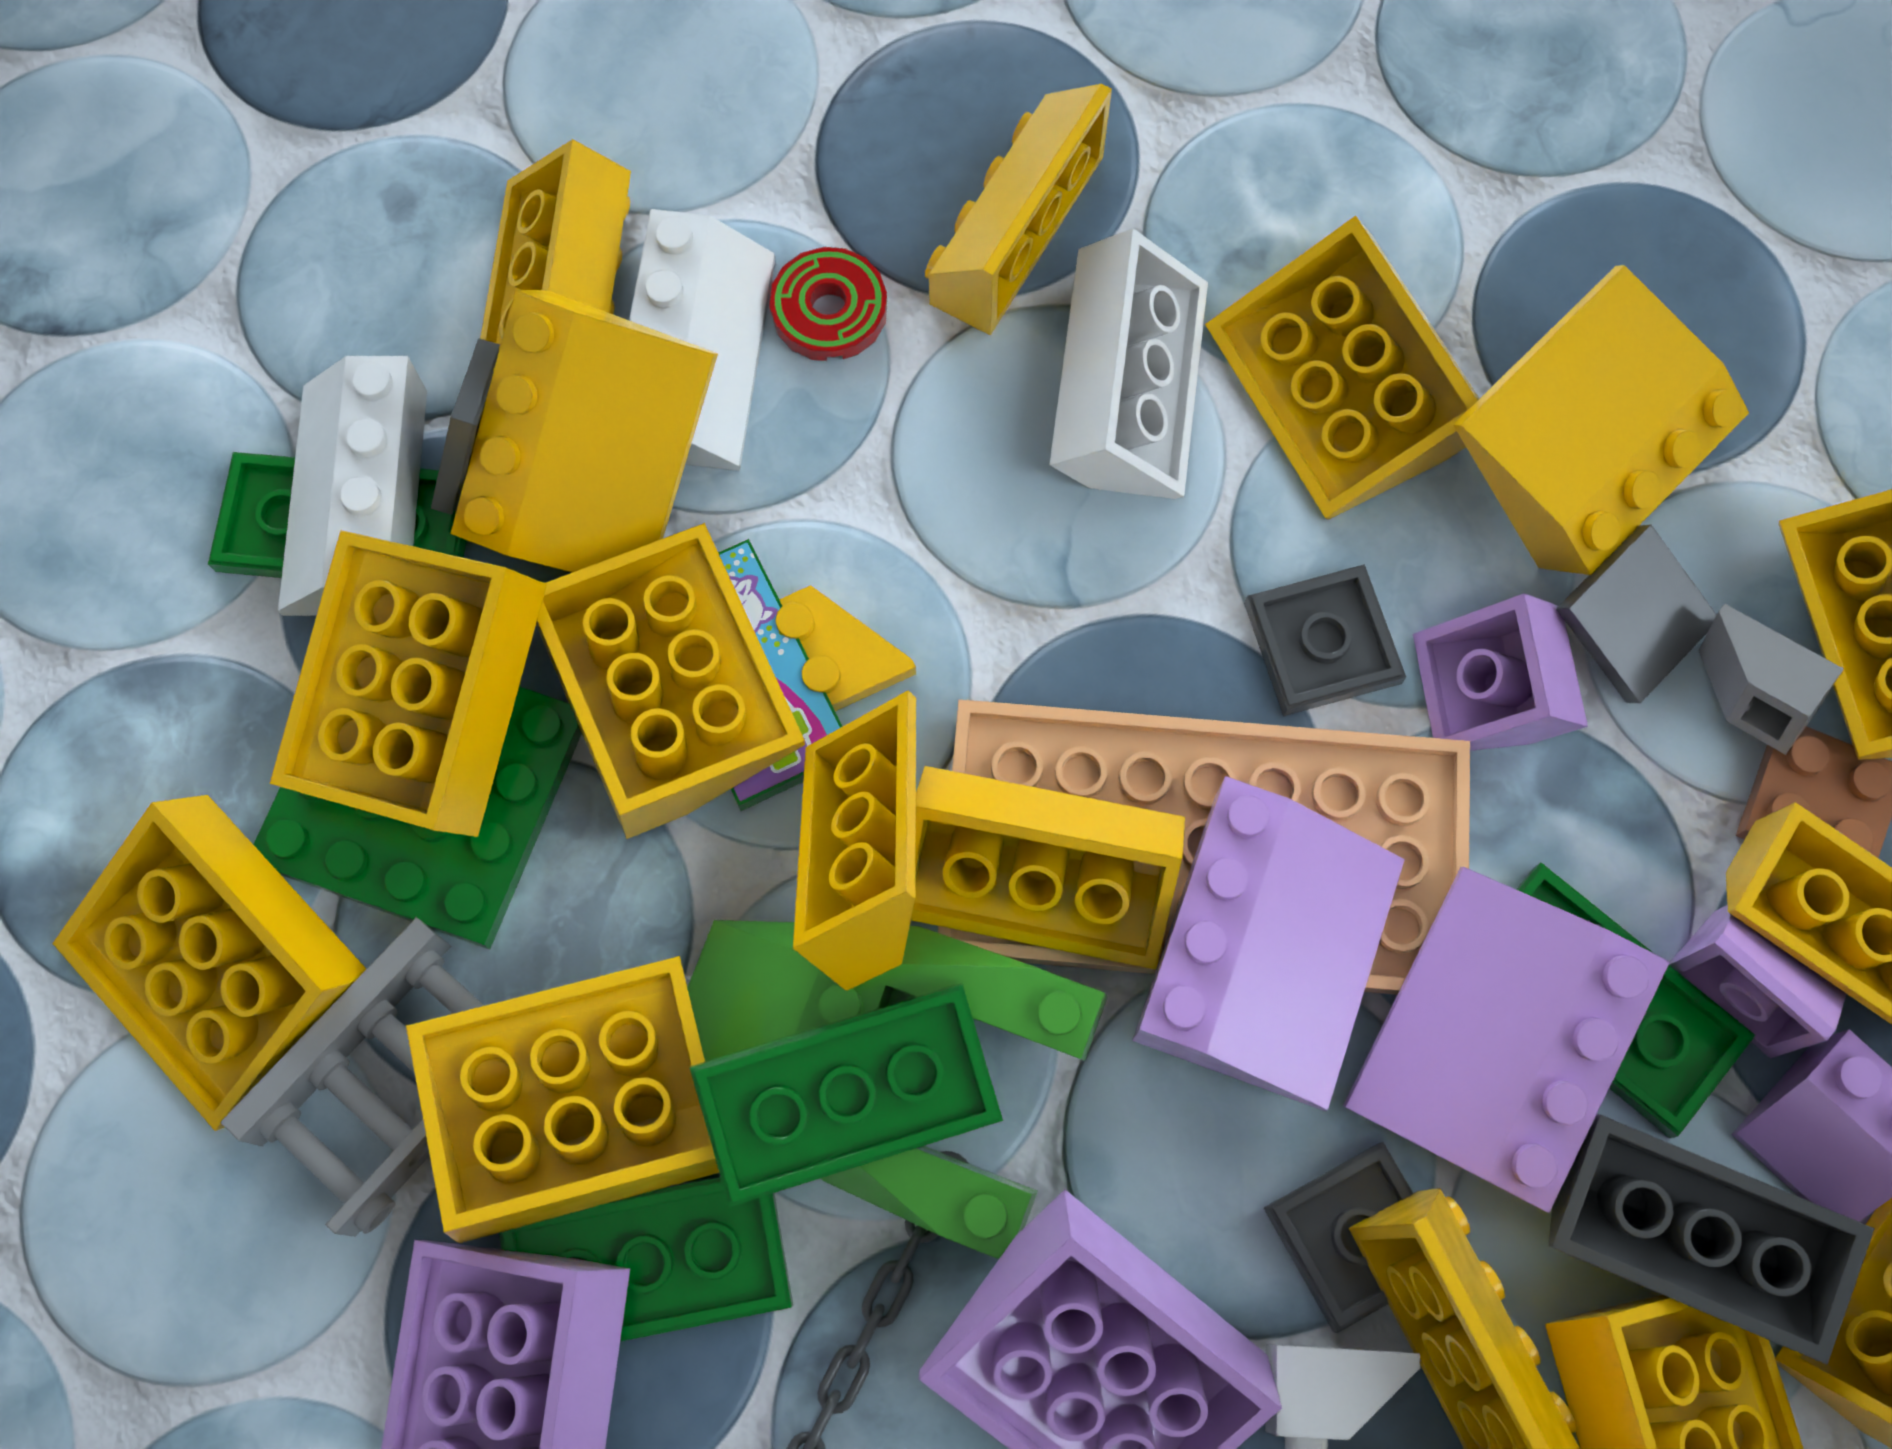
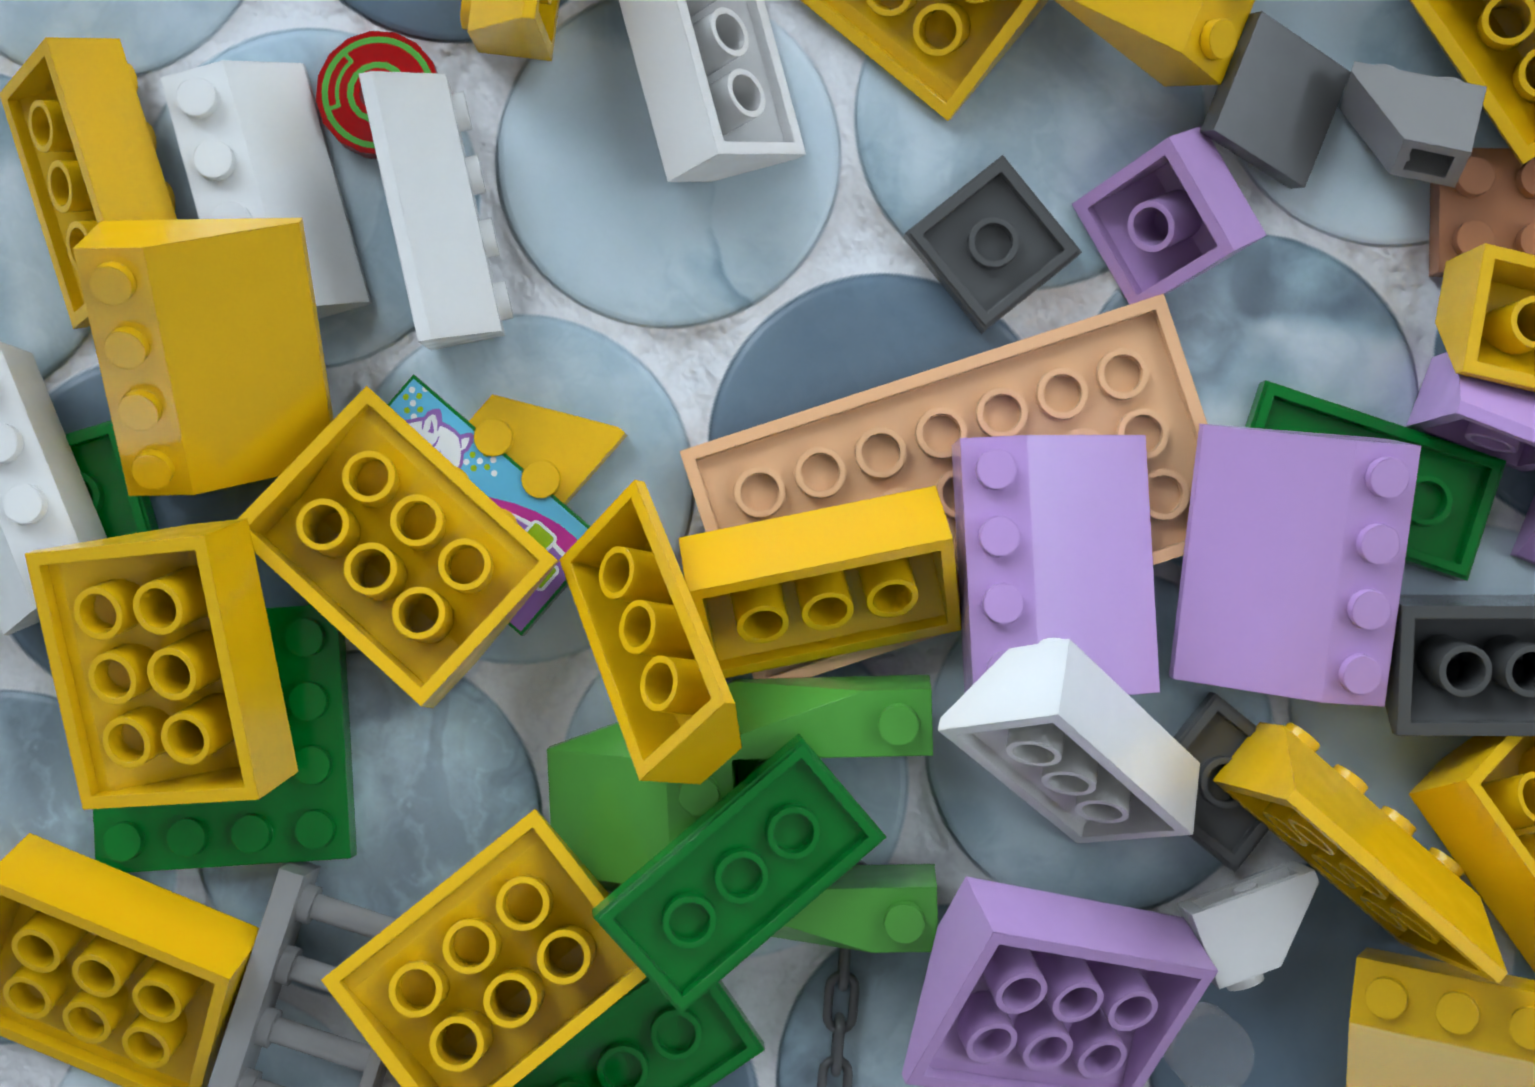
camera: 20 degrees left, 15 degrees up
(464, 427) = (88, 386): dark grey tile -> none
(833, 405) = (434, 207): none -> white slope
(1223, 1113) = (1075, 746): none -> white slope

